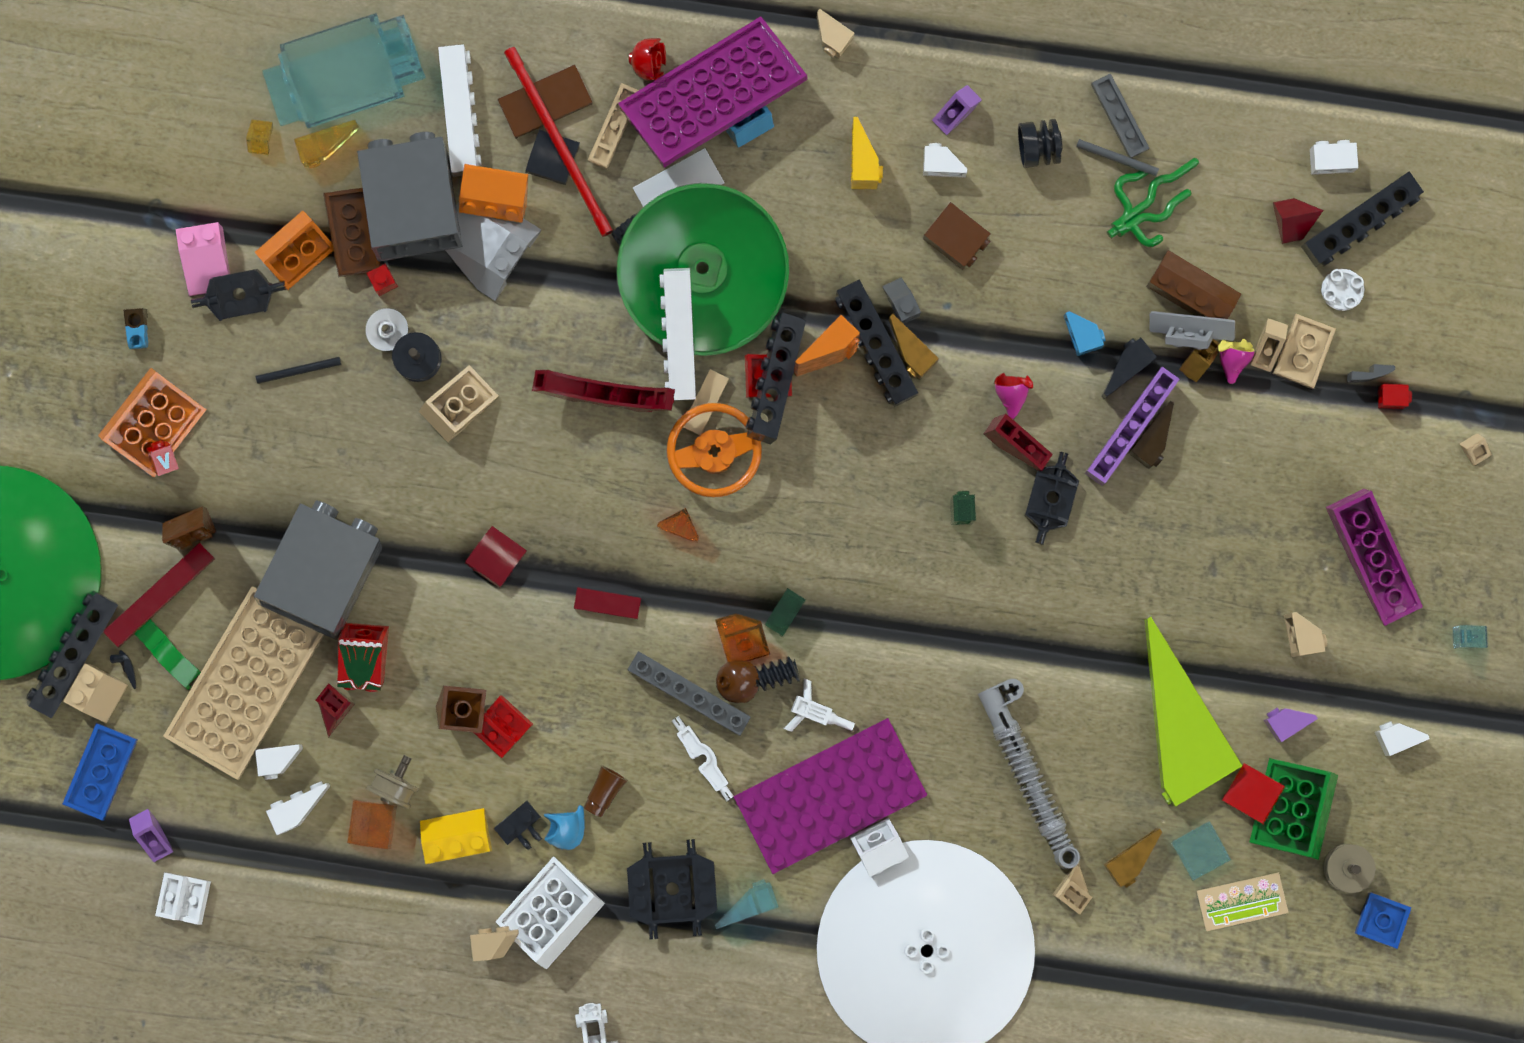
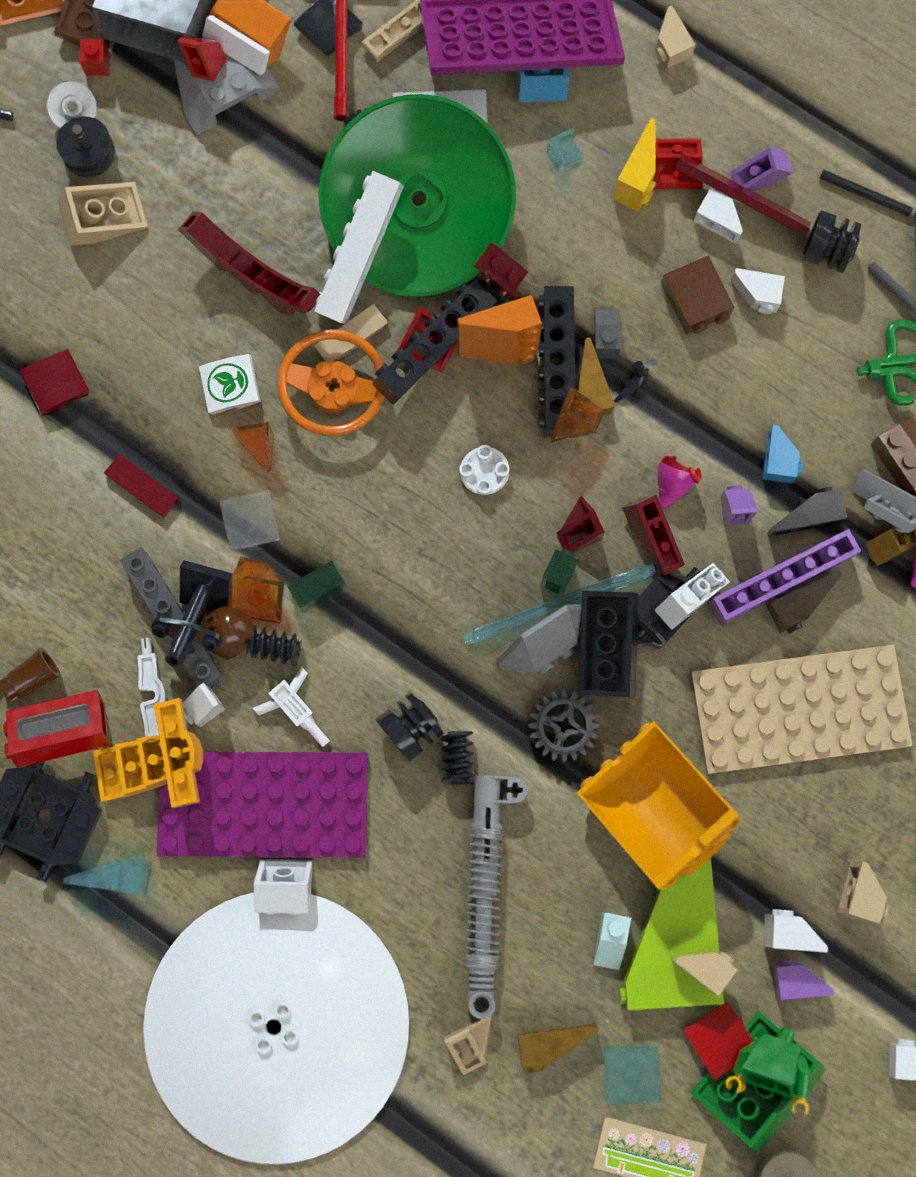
camera: 30 degrees right, 5 degrees down
(475, 239) = (203, 57): none -> red slope
(494, 216) = (236, 45): none -> white tile
(632, 489) = (229, 384): none -> slope
(647, 820) = (55, 729): none -> red piece
(703, 659) = (202, 591): none -> black piece
(704, 587) = (249, 520): none -> clear tile
(734, 806) = (153, 760): none -> light orange slope
(747, 747) = (202, 706): none -> white slope
(793, 169) = (563, 149): none -> clear light blue panel
(797, 294) = (501, 270): none -> dark red bracket
(864, 457) = (484, 470): none -> white dish
(888, 134) = (666, 157): none -> red slope
(911, 682) = (410, 726): none -> black wheel
(916, 383) = (577, 417): none -> clear orange slope
(944, 328) = (636, 382): none -> black bar
(952, 137) = (743, 195): none -> dark red tile
(957, 687) = (457, 758): none -> black piece
(959, 465) = (581, 527): none -> dark red slope
(973, 531) = (547, 608): none -> clear light blue piece
(982, 568) = (544, 643): none -> light grey wedge
(1003, 207) = (759, 289): none -> white slope
(1025, 633) = (570, 705): none -> dark grey gear
(1027, 545) = (608, 643): none -> black brick
(1045, 85) = (866, 193): none -> black bar
(1069, 388) = (737, 505): none -> medium lavender slope
(1071, 476) = (691, 596): none -> white slope
(1125, 648) = (659, 807): none -> light orange cylinder
(1138, 762) = (611, 940): none -> light aqua slope
(1192, 519) = (800, 709): none -> tan plate
(1218, 746) = (708, 968): none -> tan slope
(1264, 690) = (790, 932): none -> white slope
(1300, 791) = (774, 1066): none -> green torso

